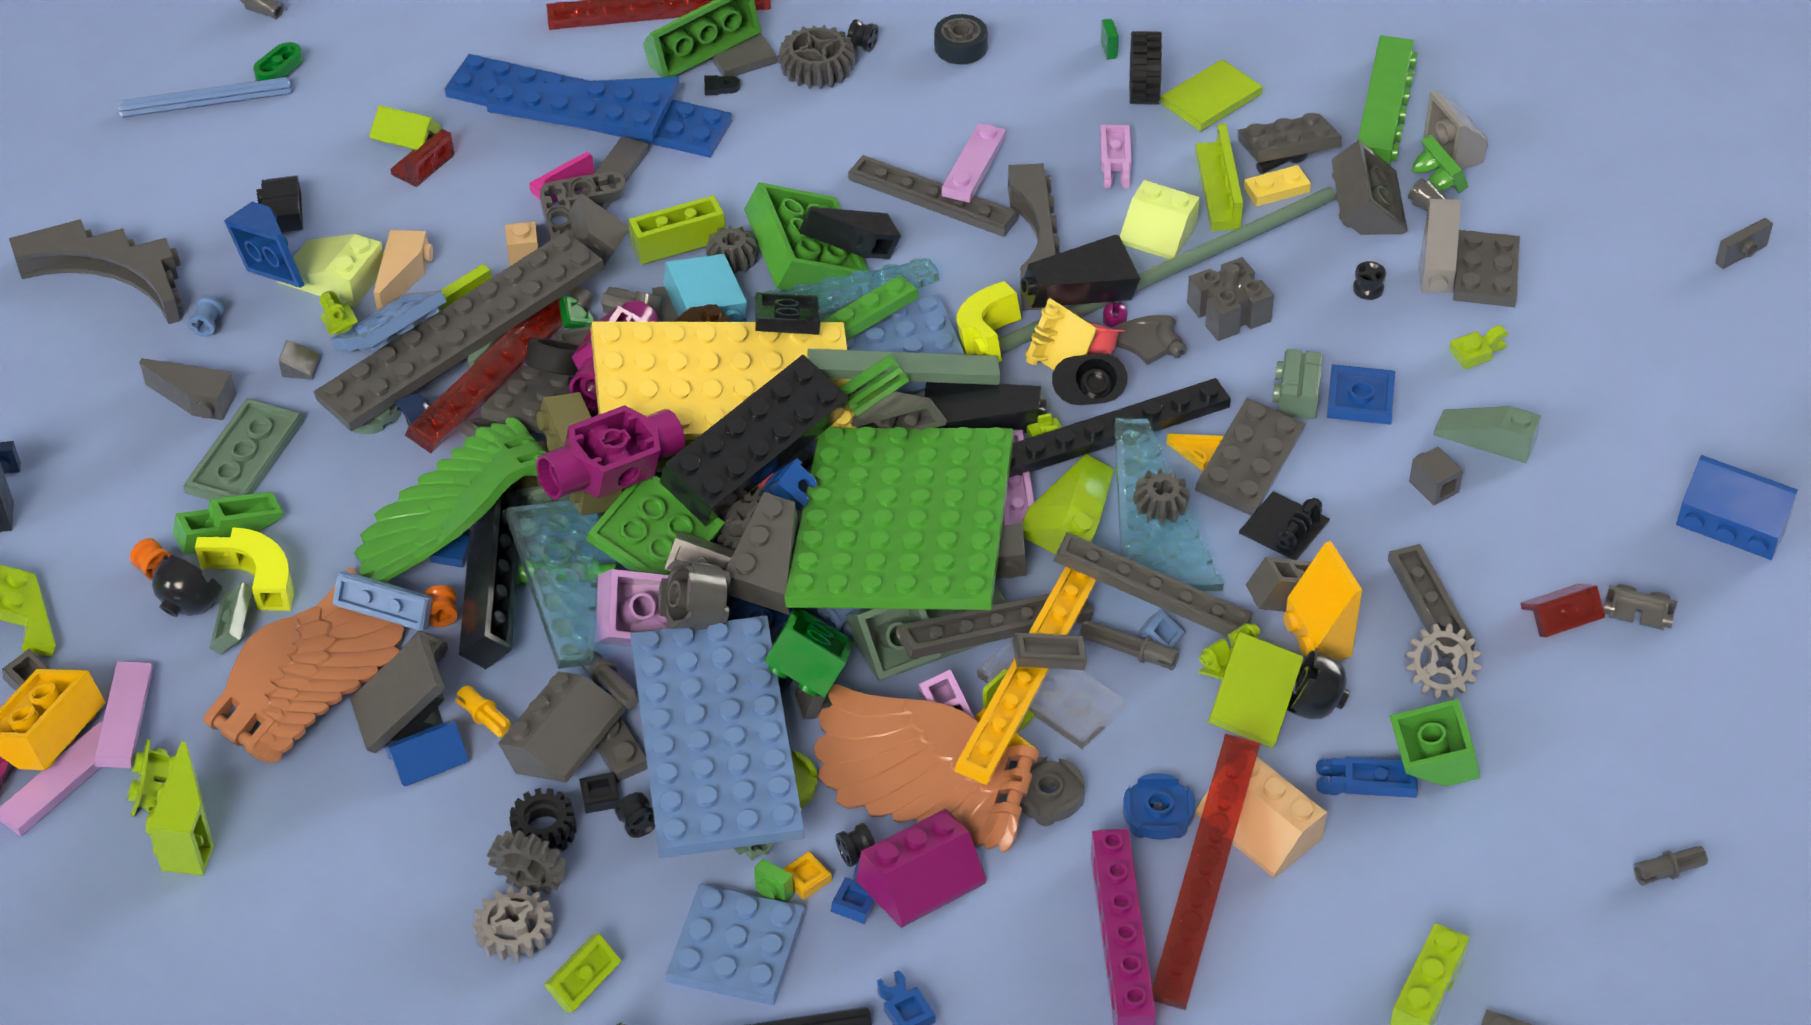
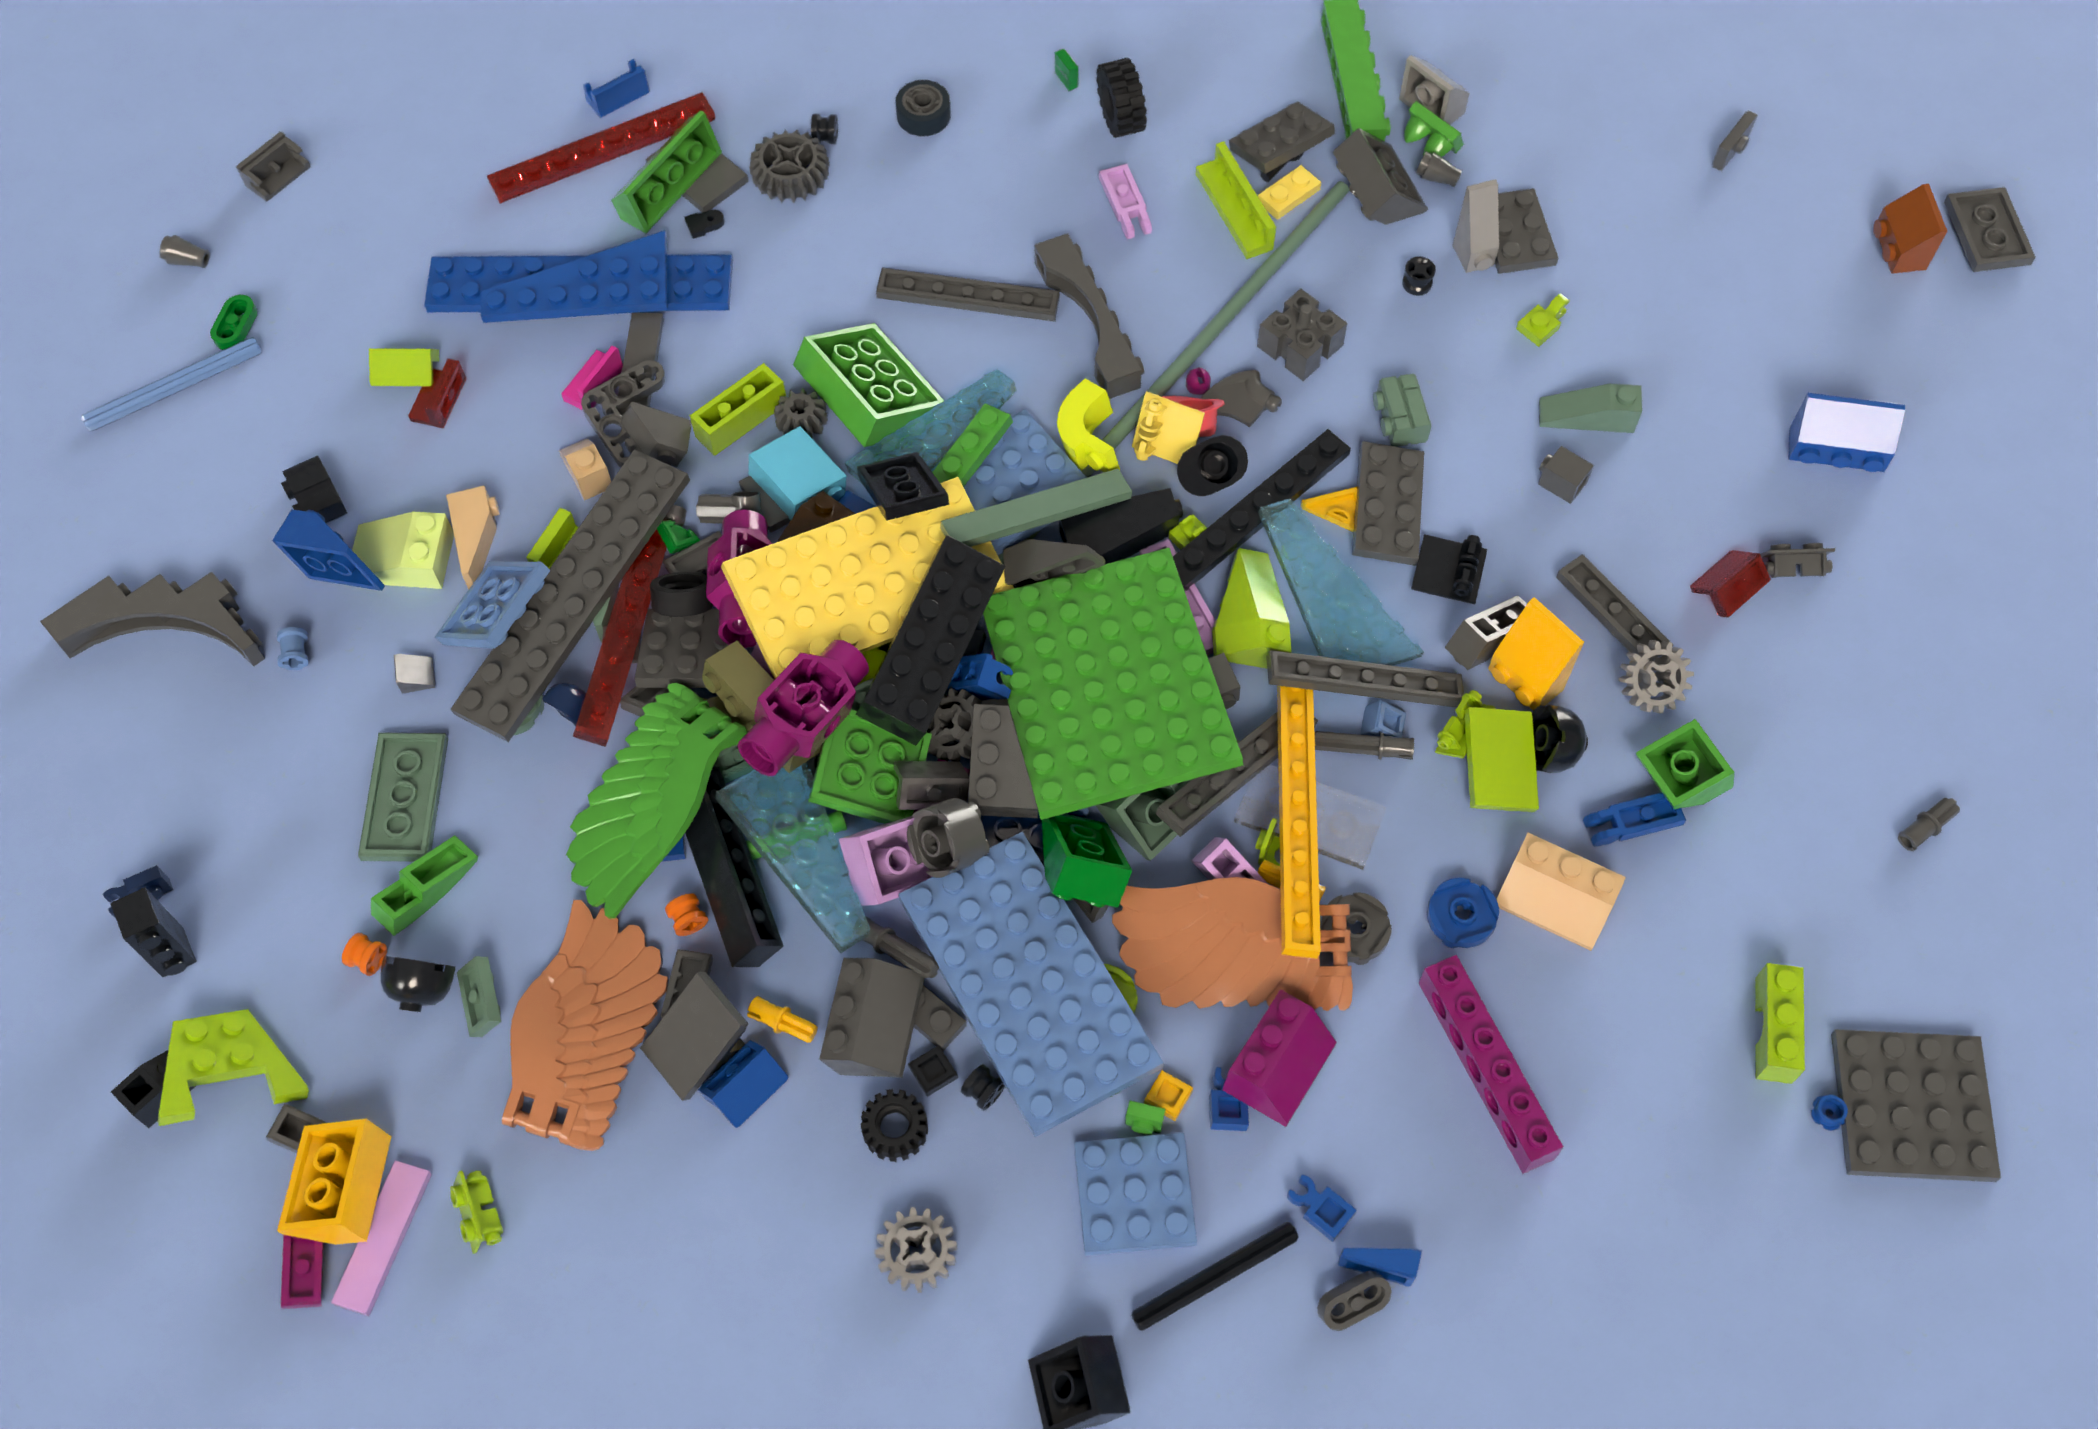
camera: 20 degrees left, 15 degrees up
(123, 715) = (417, 1146): lavender tile -> none
(179, 820) = (541, 1264): lime slope -> none
(192, 388) = (323, 739): dark grey slope -> none
(254, 554) = (478, 916): neon yellow arch -> none
(337, 316) = (432, 608): lime hinge -> none
(382, 600) = (629, 931): medium blue tile -> none
(527, 862) = (906, 1183): dark grey gear -> none
(582, 973) = (1006, 1280): lime plate -> none
(853, 231) = (920, 363): black slope -> none
(853, 842) = (1205, 1049): black wheel -> none
(876, 388) = (1019, 539): bright green tile -> none
(973, 162) = (994, 247): lavender plate -> none
(1049, 651) = (1311, 790): dark grey tile -> none
(1082, 275) = (1162, 353): black slope -> none
(1160, 220) = (1199, 264): yellowish green slope -> none
(1161, 496) = (1351, 580): dark grey gear -> none
(1204, 872) = (1543, 975): clear red plate -> none
(1211, 95) = (1187, 106): lime tile -> none
(1361, 394) = (1462, 404): blue plate -> none

